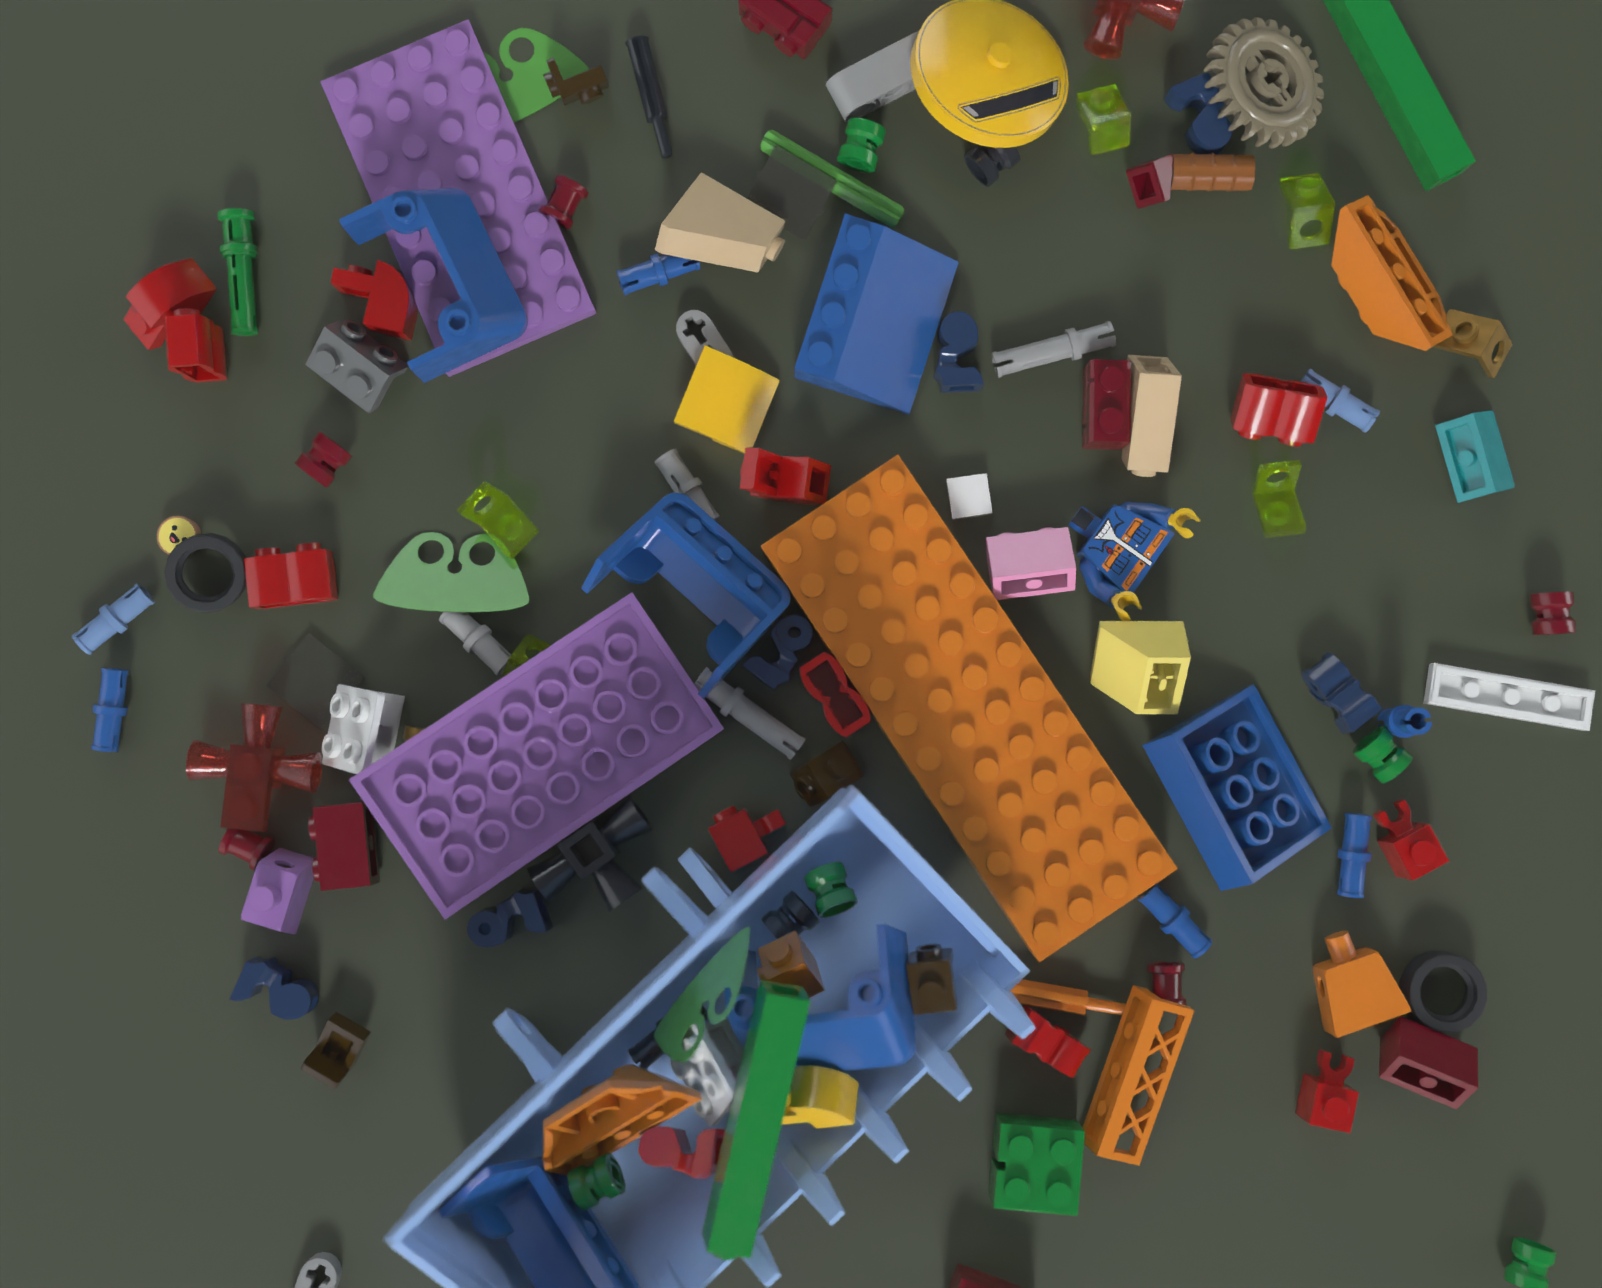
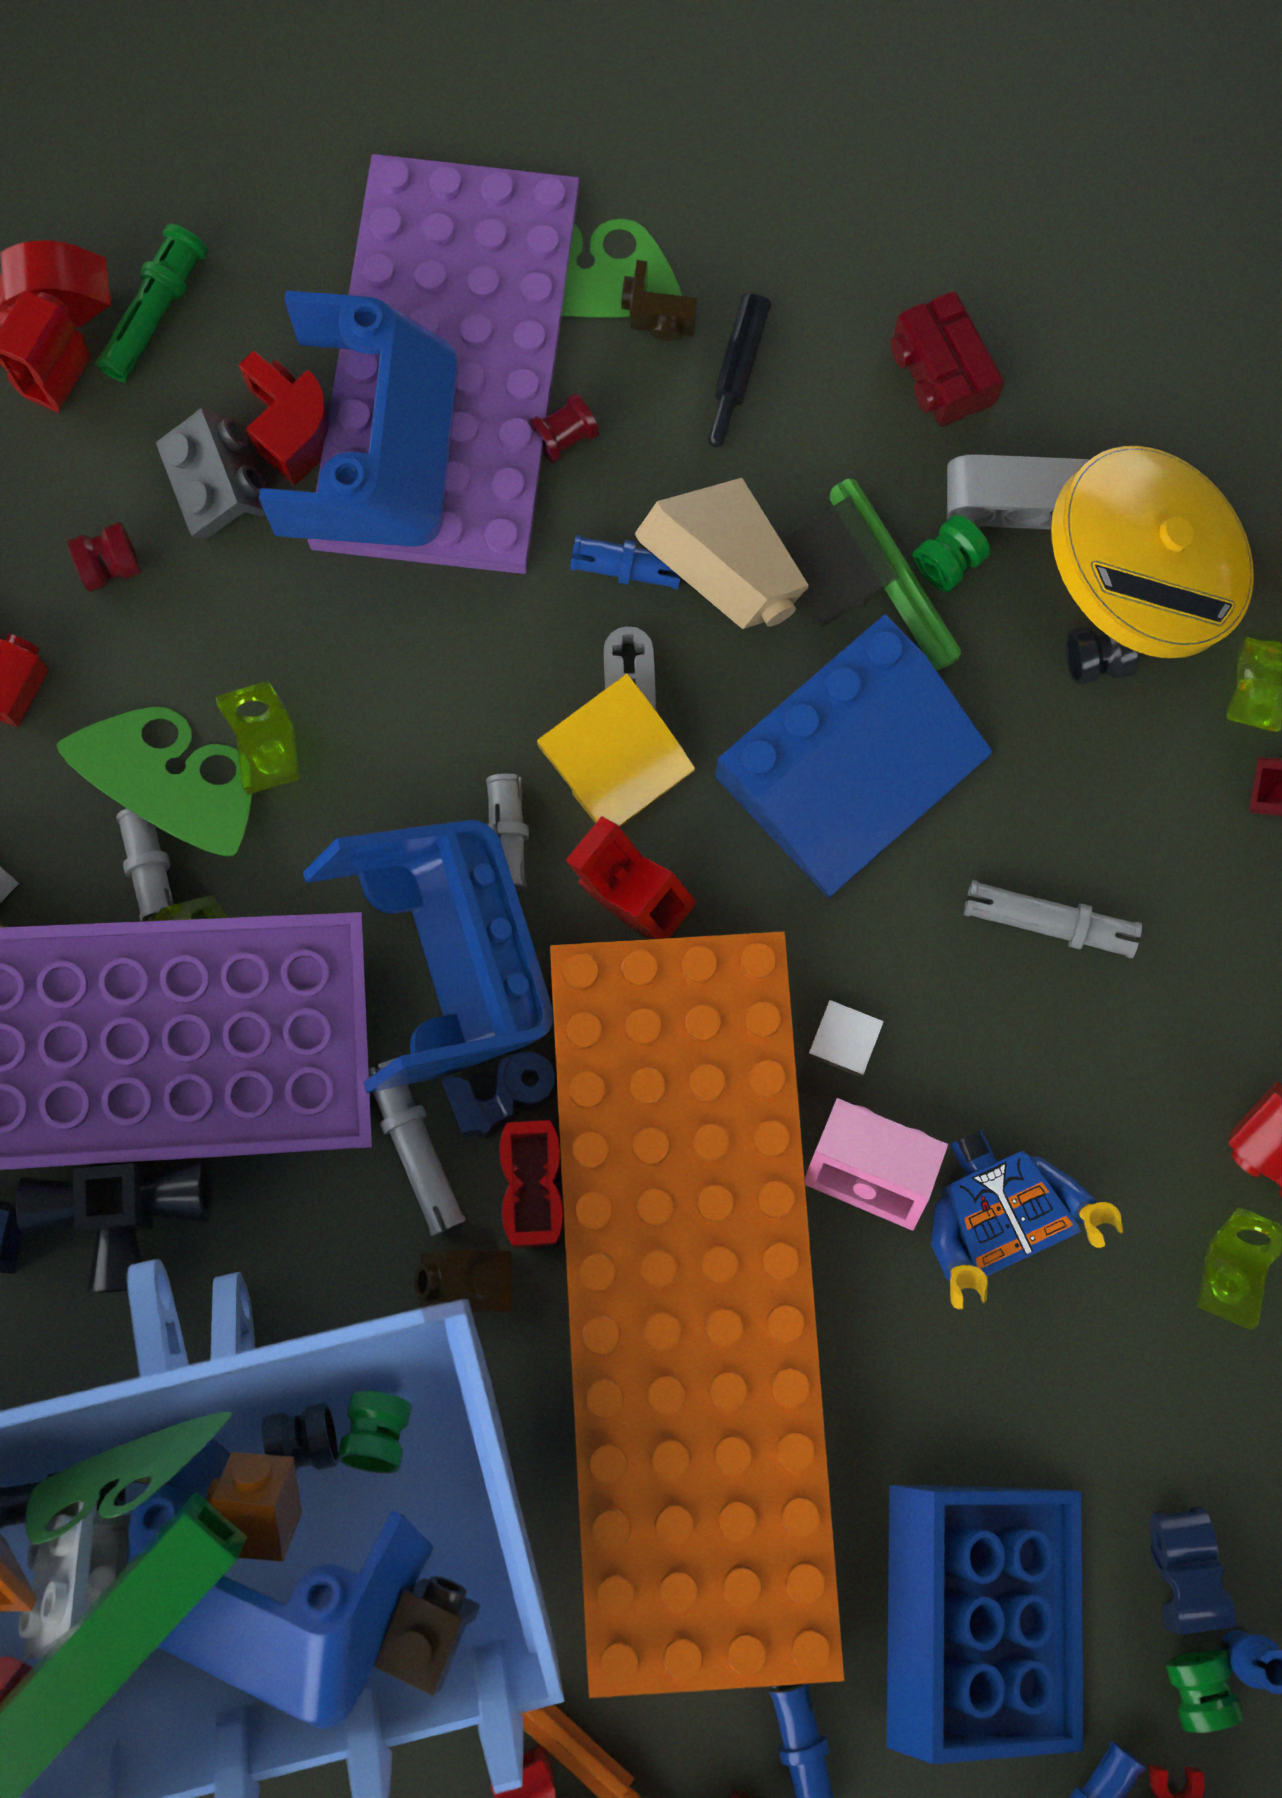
camera: 30 degrees right, 10 degrees down
(740, 837) = (309, 1295): red brick -> none
(821, 1097) = (180, 1705): yellow brick -> none
(958, 338) = (937, 844): dark blue leg -> none
(1106, 404) = (1081, 1022): dark red brick -> none
(1142, 664) = (946, 1376): light yellow slope -> none
(1152, 414) = (1129, 1066): tan slope -> none

